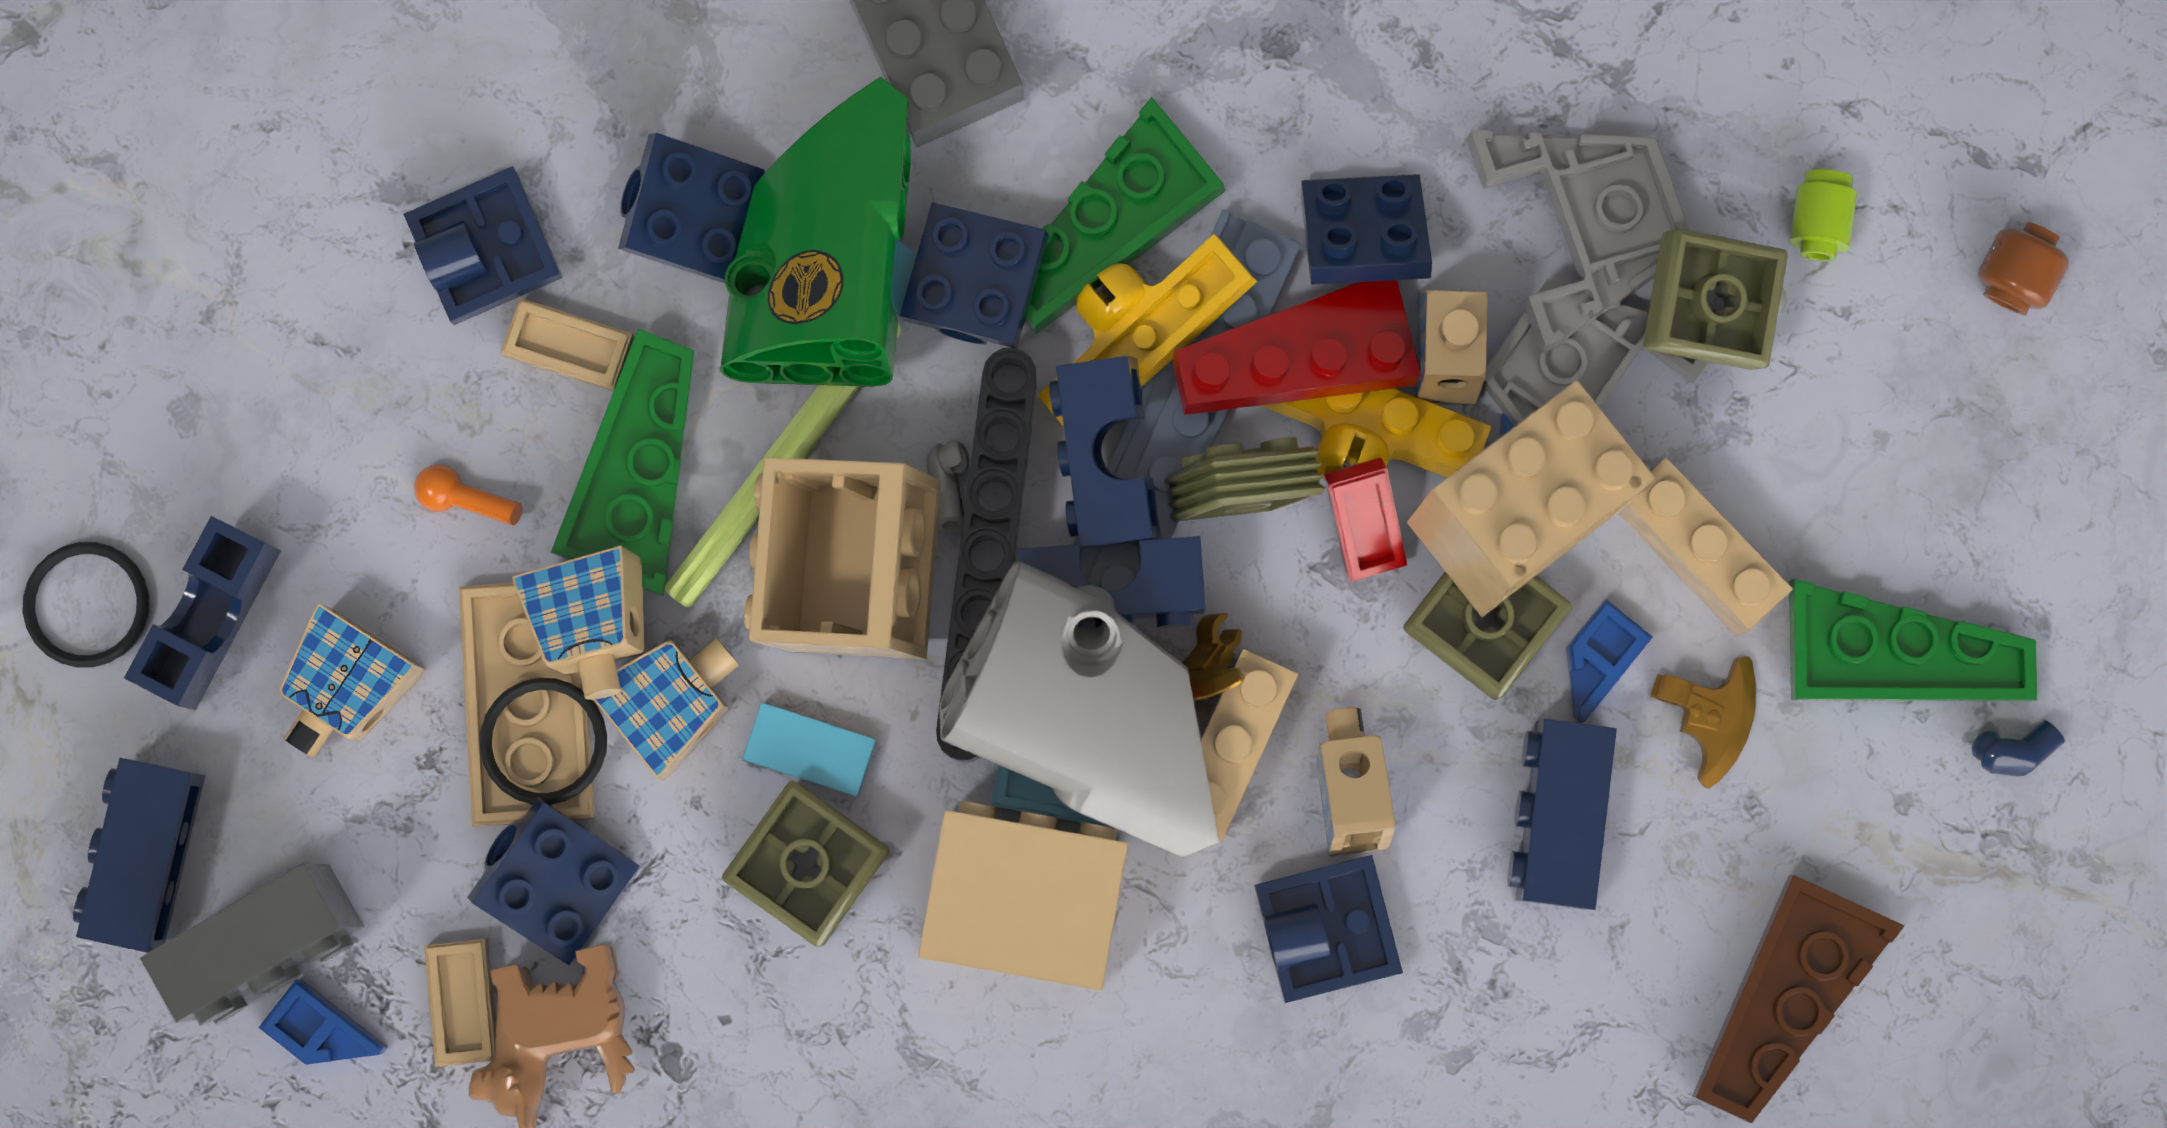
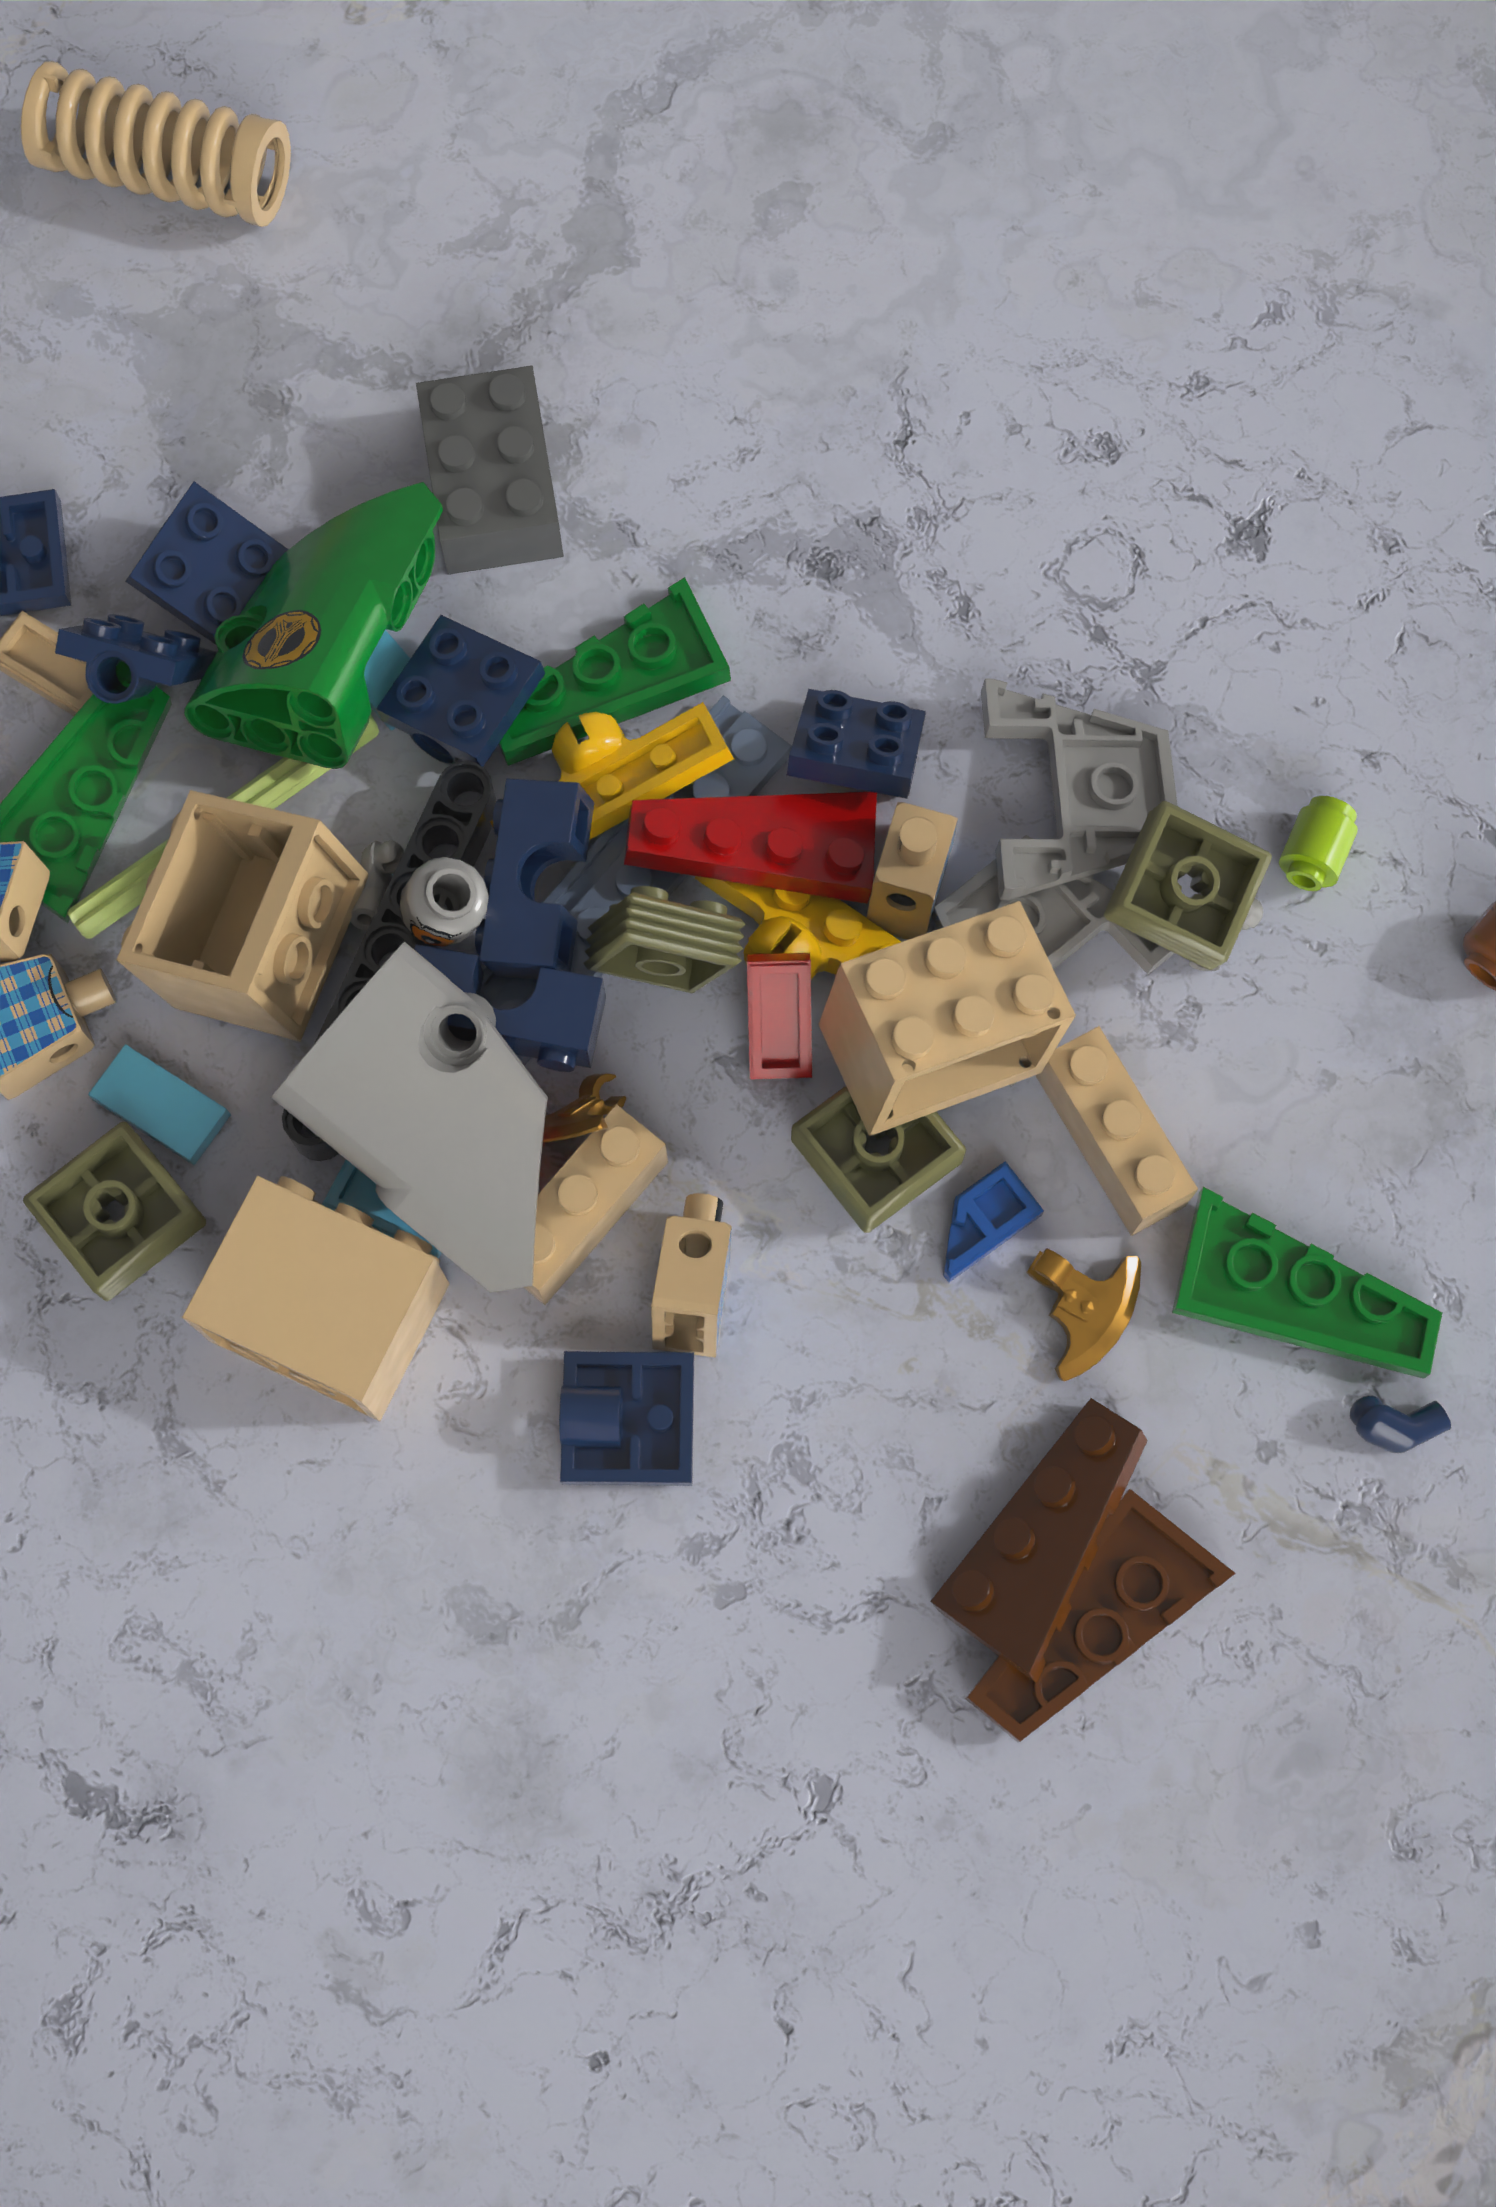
camera: 15 degrees right, 10 degrees down
(676, 317) = (150, 657): none -> dark blue plate
(1050, 506) = (451, 884): none -> light grey head
(1563, 814) = (902, 1363): dark blue brick -> none
(1724, 951) = (1028, 1561): none -> reddish brown wing

